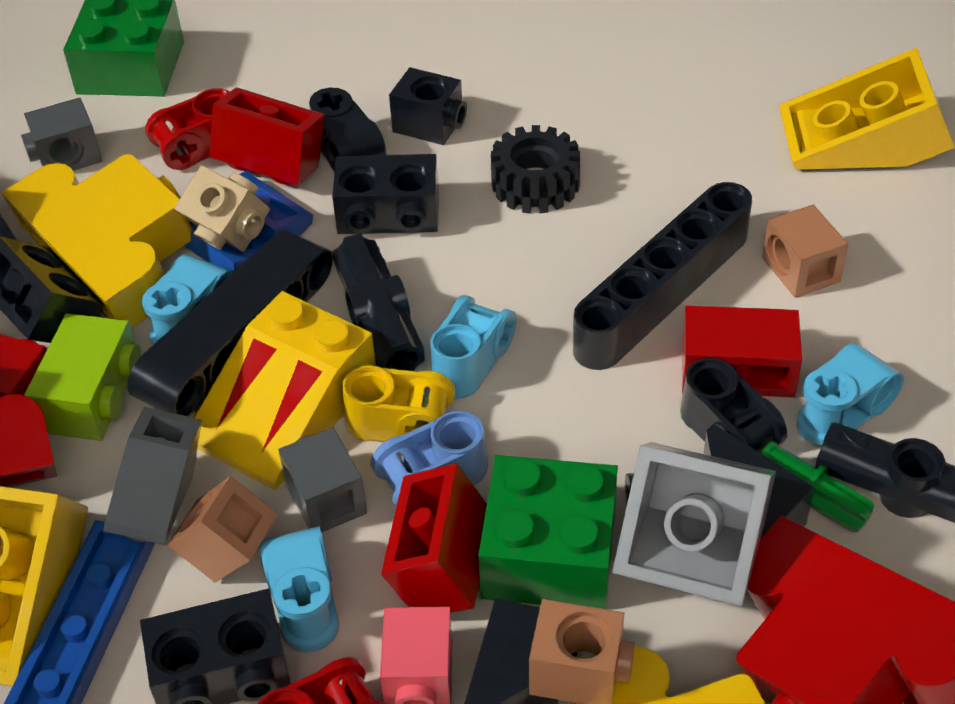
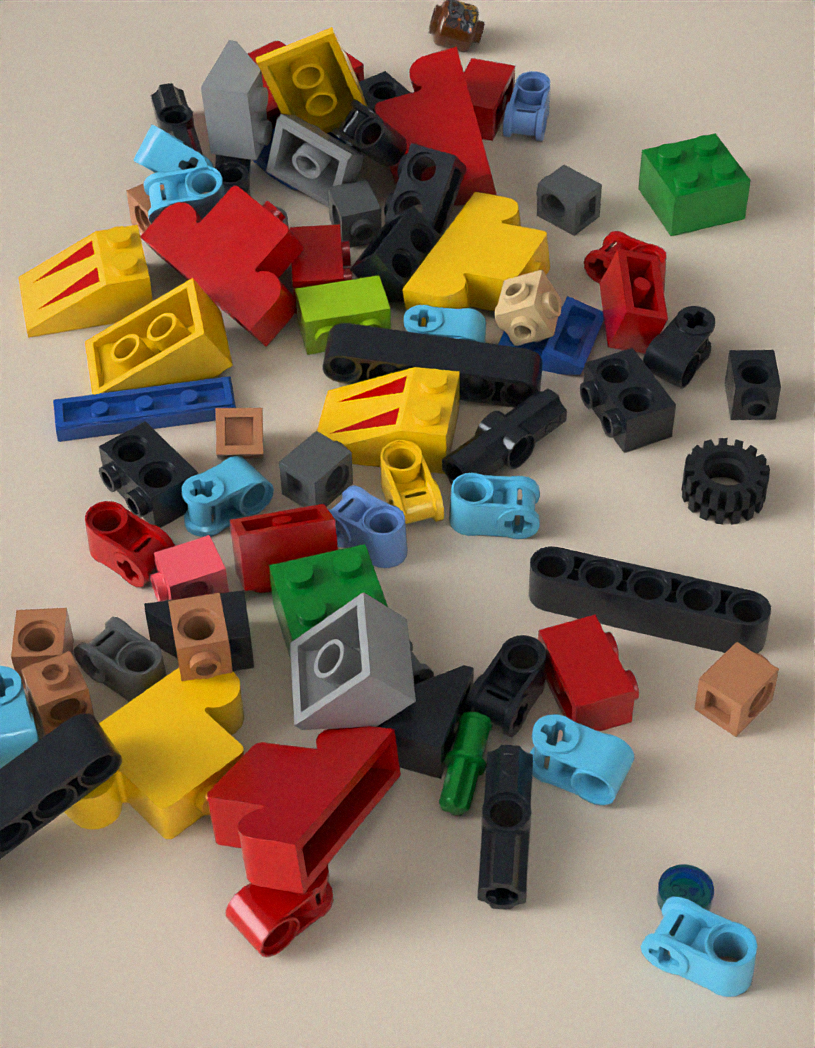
camera: 65 degrees right, 0 degrees up
(153, 476) = (266, 378): dark grey slope -> none

